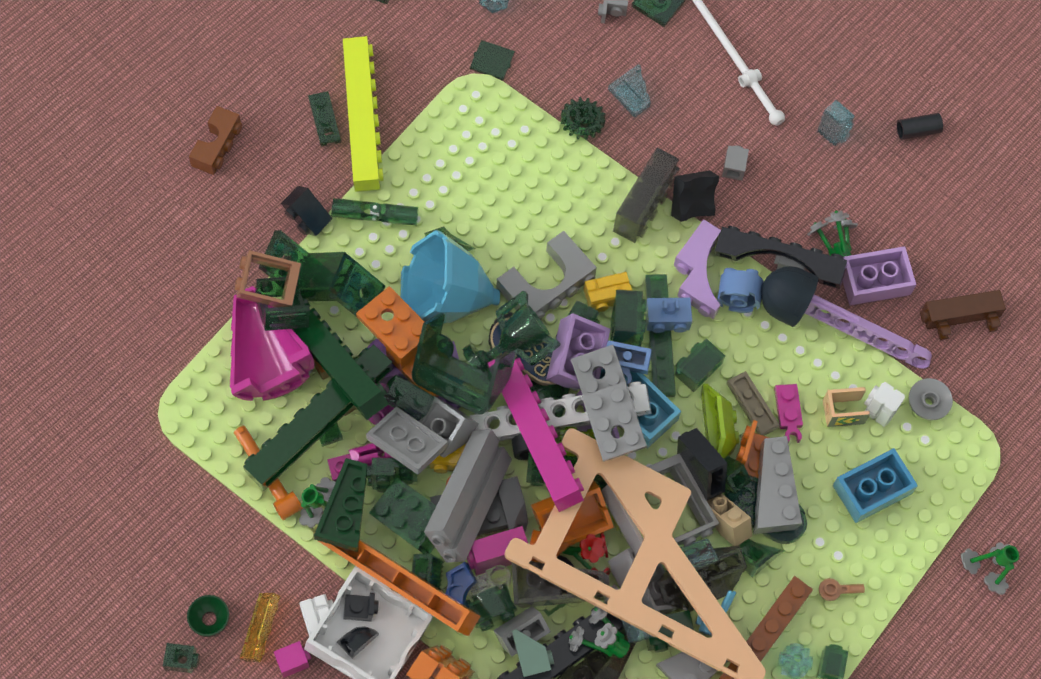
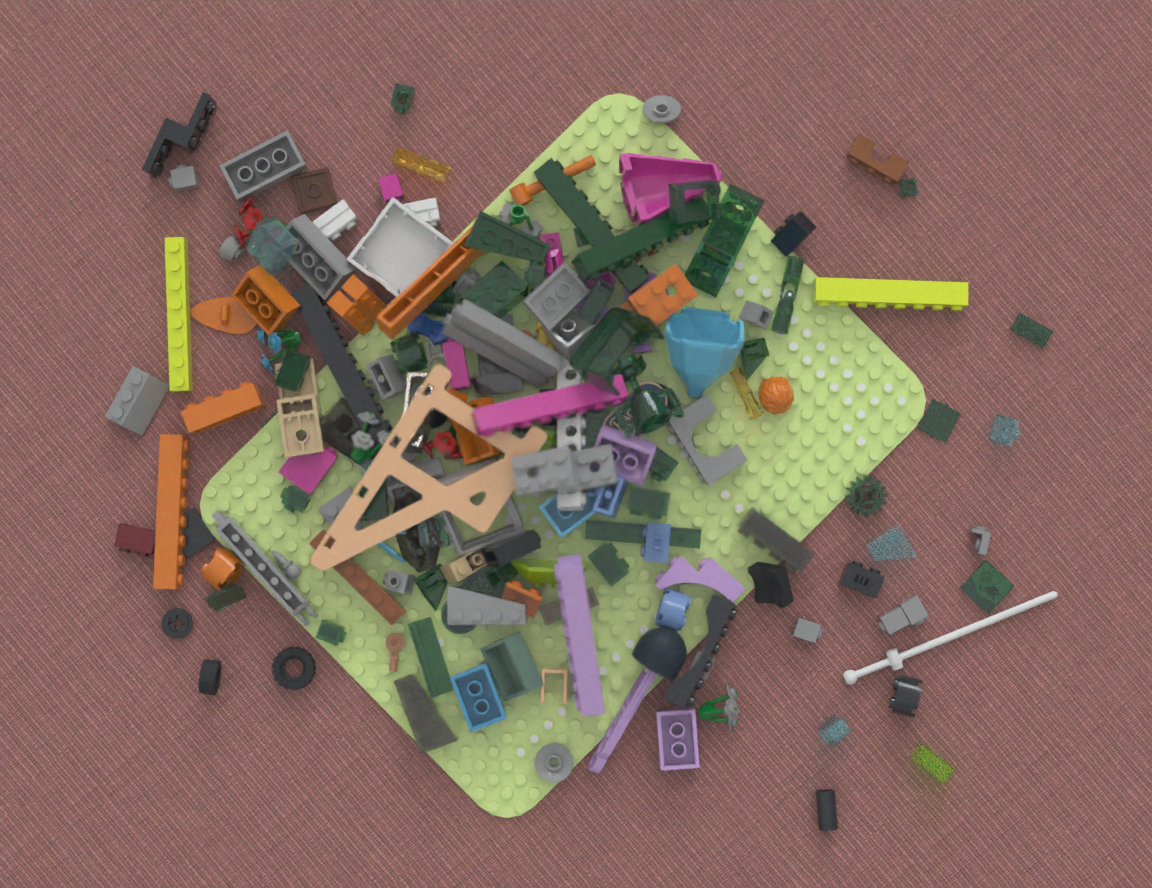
camera: 100 degrees right, 20 degrees up
(174, 364) = (661, 109): none -> light grey dish
(203, 606) = (434, 113): dark green piece -> none
(244, 104) = (904, 191): none -> clear green plate
(290, 283) = (707, 208): nougat window -> none
(324, 118) = (891, 259): clear green plate -> none
(357, 640) = (396, 241): black brick -> none
(360, 607) = (423, 246): black bracket -> none
(400, 552) = (466, 281): none -> light grey bracket
(401, 239) = (753, 312): none -> light grey brick
(485, 245) = (744, 389): none -> clear yellow piece
(487, 212) = (776, 395): none -> orange hair
(531, 654) = (360, 379): sand green slope -> none
(601, 291) = (687, 493): yellow brick -> none
(673, 115) = (861, 580): none -> black brick
(696, 64) = (914, 610): none -> light grey brick
(710, 81) = (892, 620): none -> light grey brick
(754, 585) = (404, 582): none -> light grey brick
(786, 374) = (580, 635): none -> lavender brick
(787, 60) = (906, 696): none -> black brick
(789, 410) = (552, 636): dark pink plate -> none
(791, 667) = (343, 600): clear light blue brick -> none
(834, 450) = (512, 666): none -> sand green piece
(839, 548) = (430, 657): none -> clear green panel
(851, 32) = (932, 763): none -> clear neon green brick
(883, 403) = (550, 718): white brick -> none
(912, 542) = (425, 719): none -> clear smoke wedge
(963, 309) = (638, 811): reddish brown brick -> none
(1003, 555) = (401, 797): plant -> none

